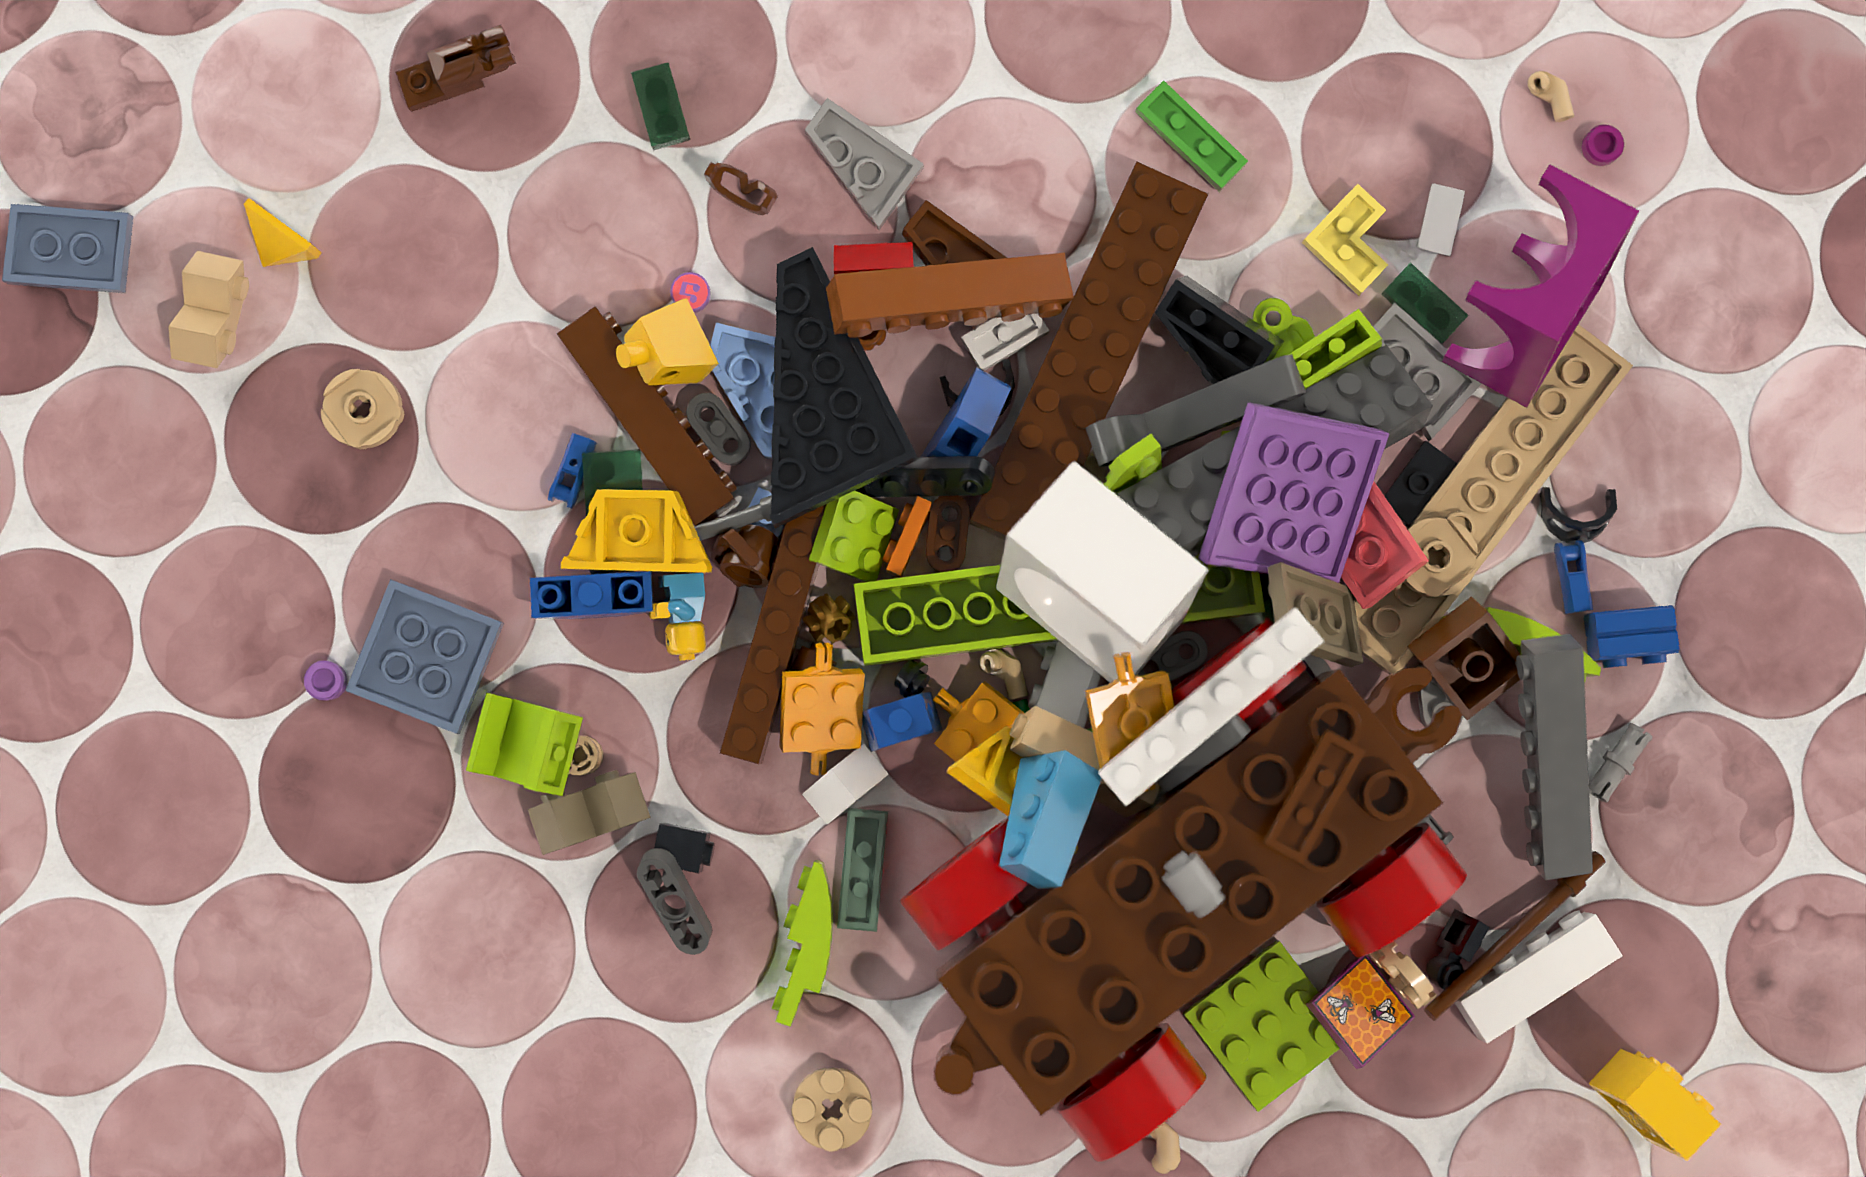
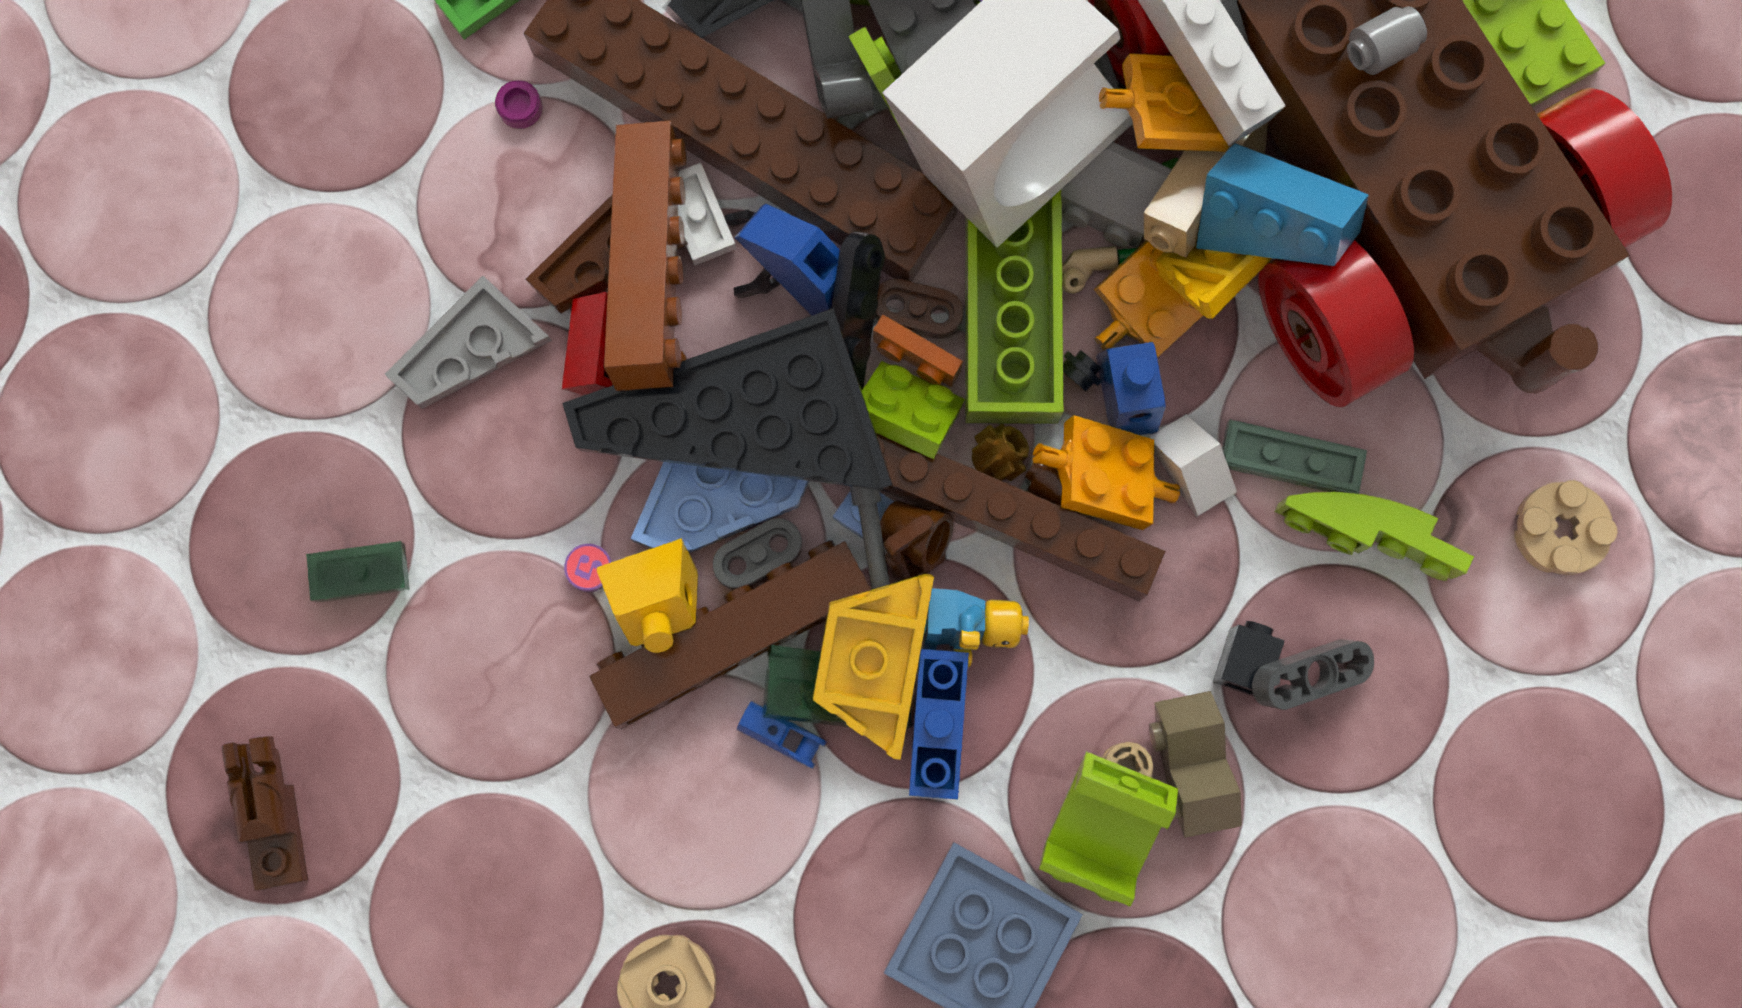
camera: 80 degrees left, 5 degrees down
(714, 176) = (503, 466): reddish brown helmet -> none
(1083, 168) = (518, 104): none -> magenta tile

